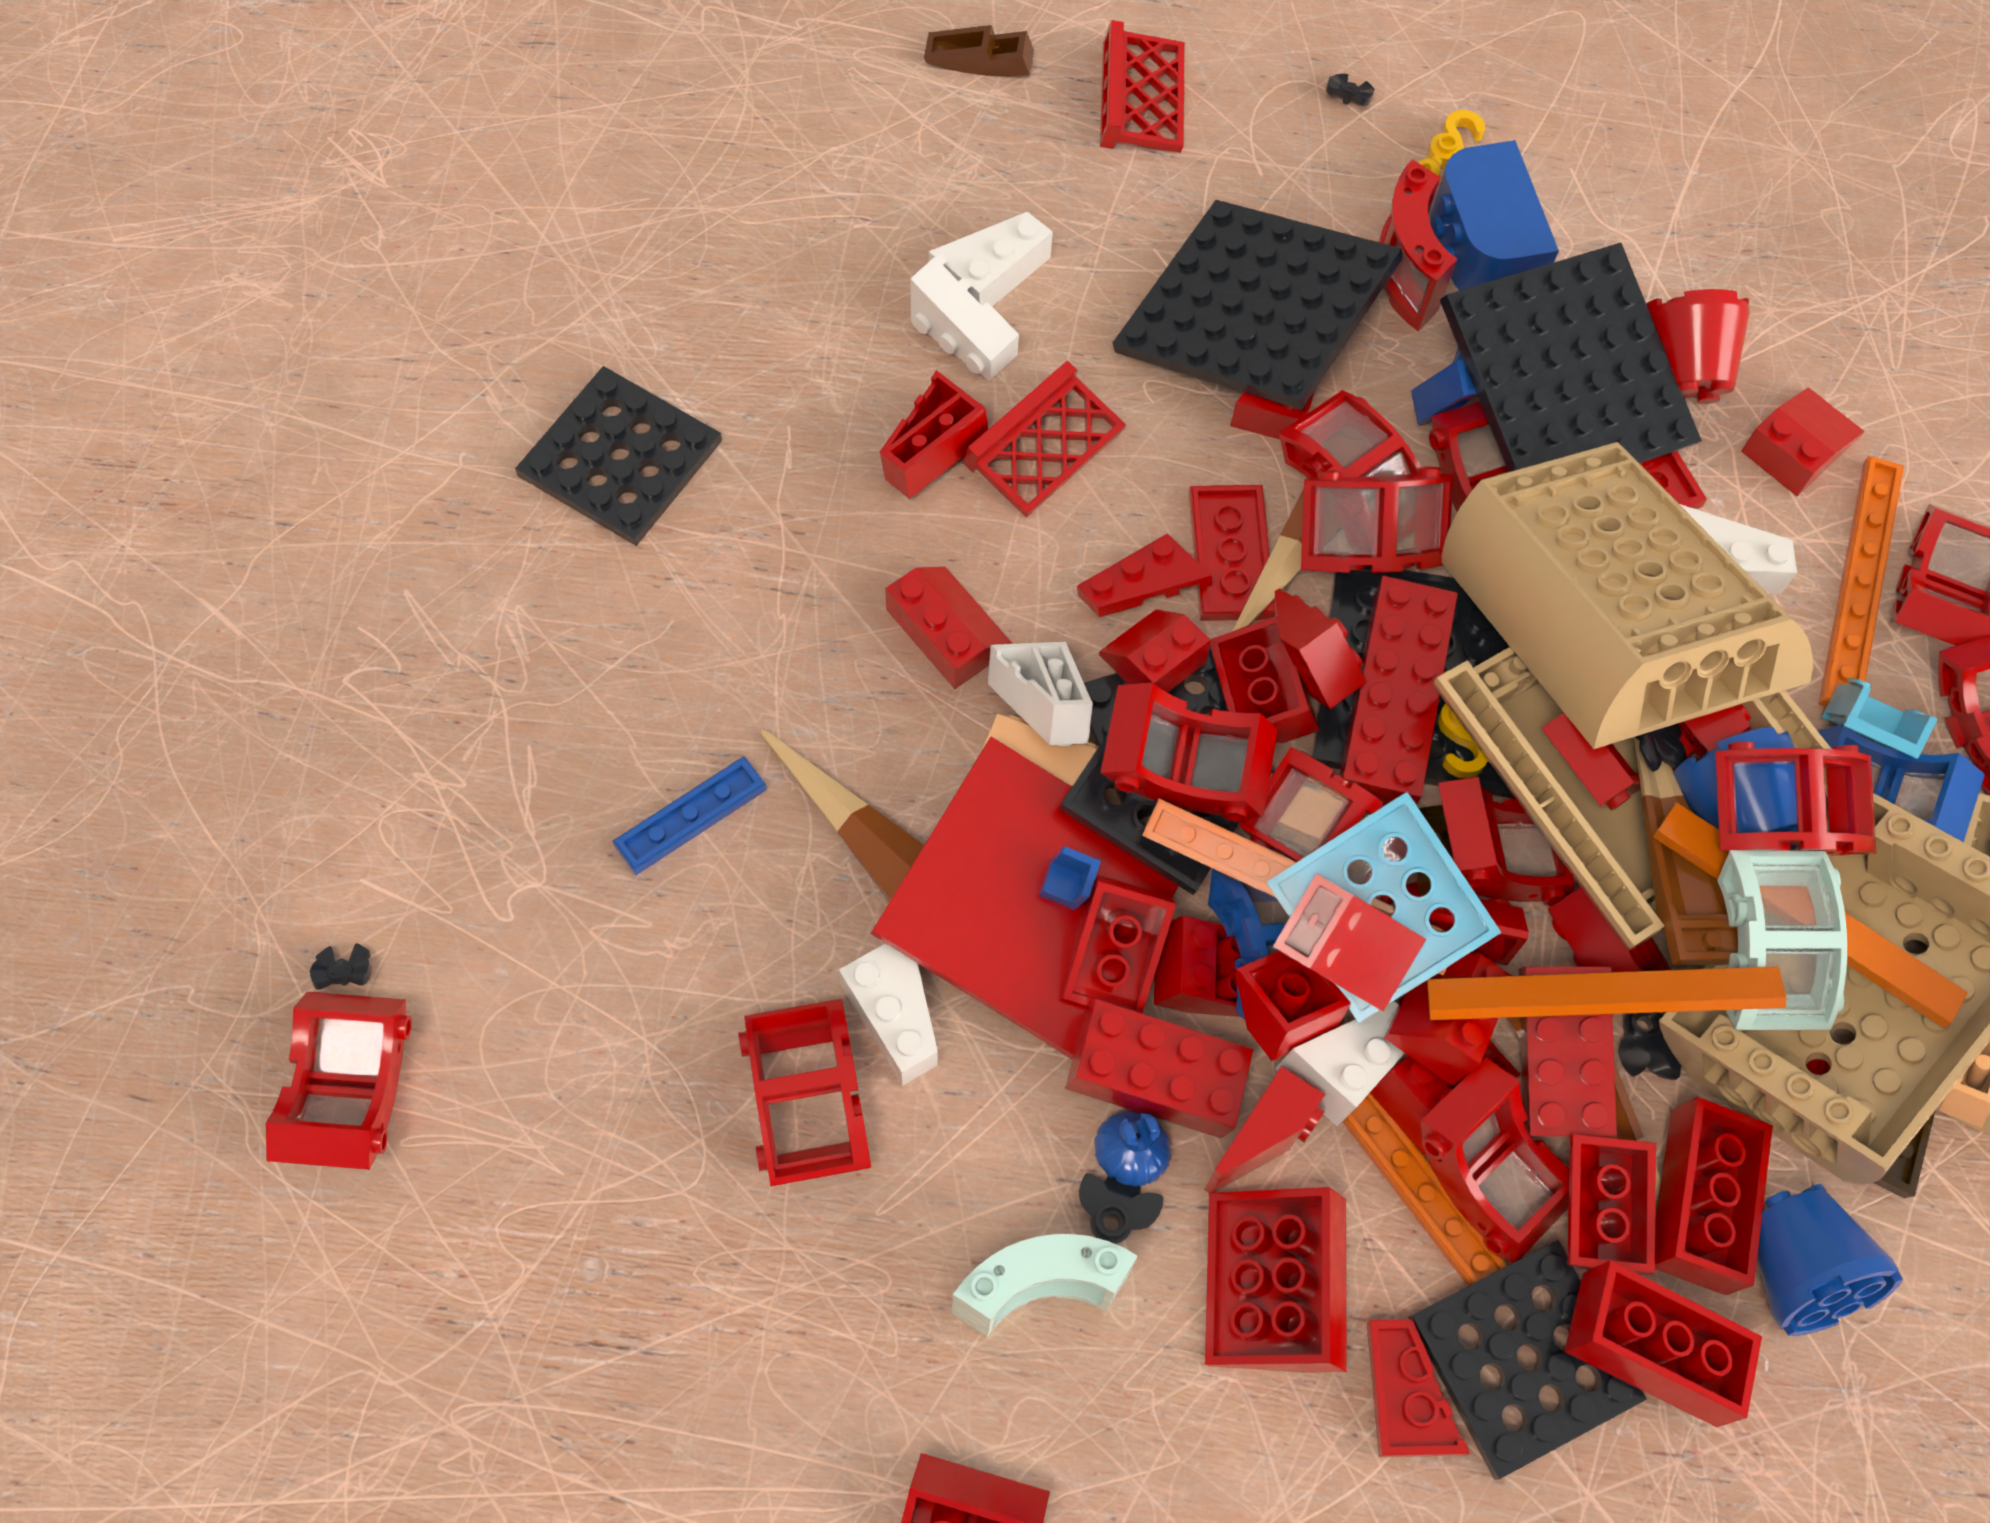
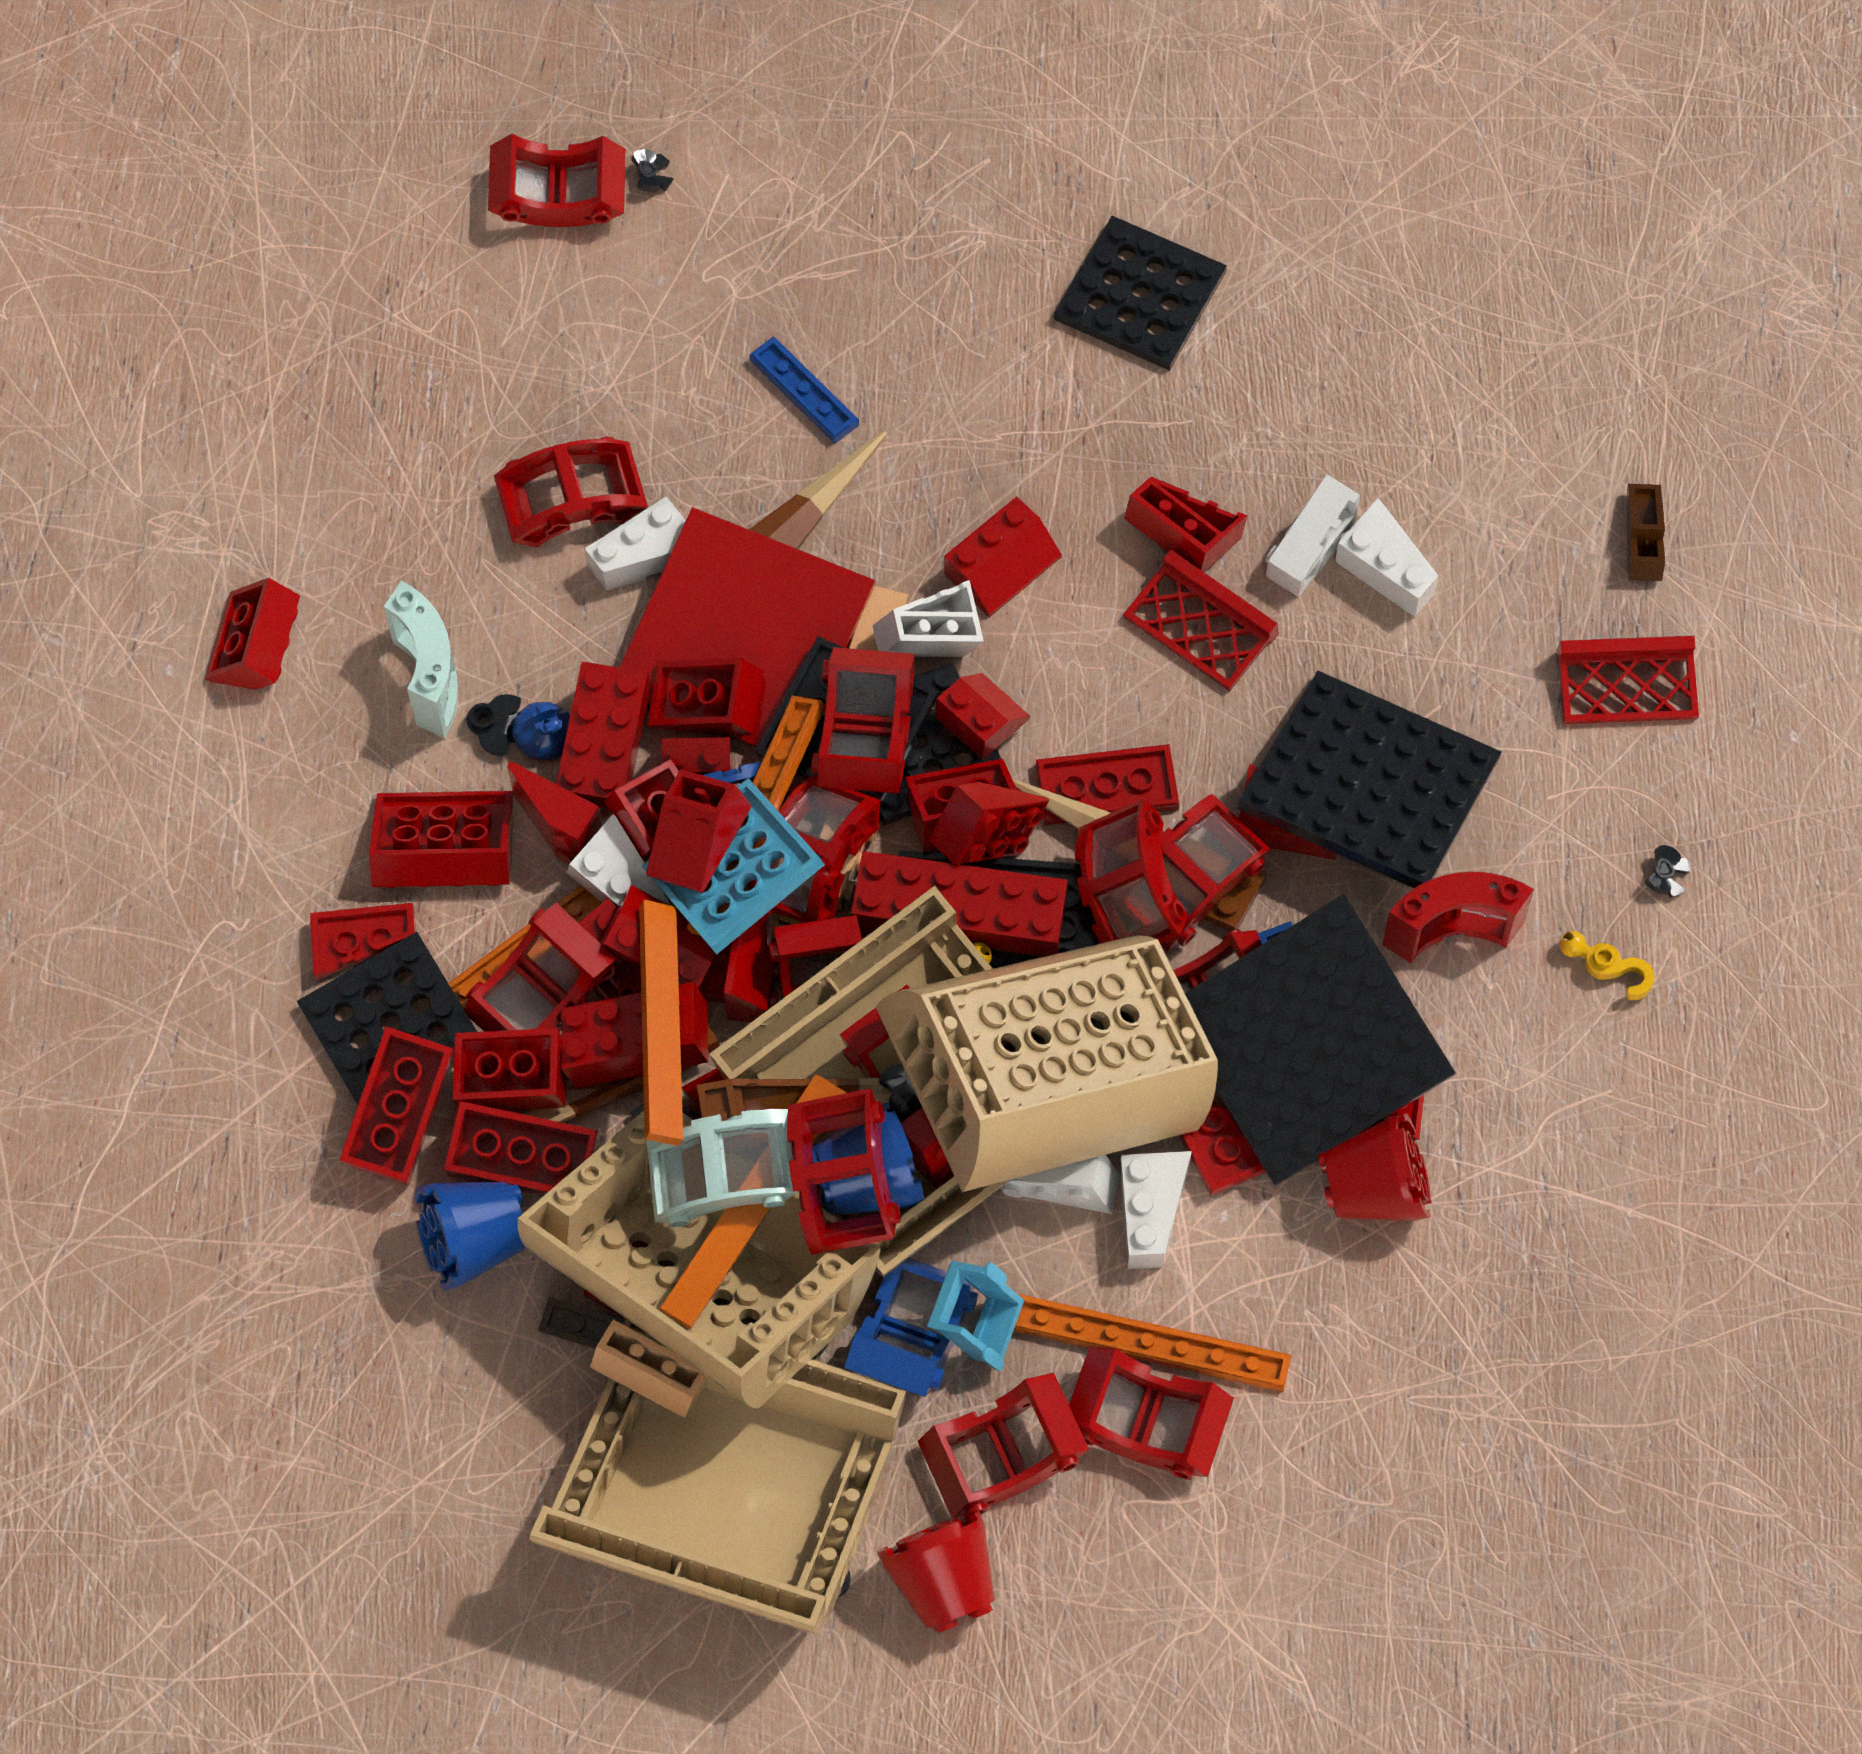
camera: 90 degrees right, 0 degrees up
(1069, 878) = (756, 649): blue panel -> none
(1149, 572) = (1068, 710): red wing -> none
(1490, 215) = (1504, 989): blue brick -> none
(1801, 440) = (1303, 1293): red slope -> none

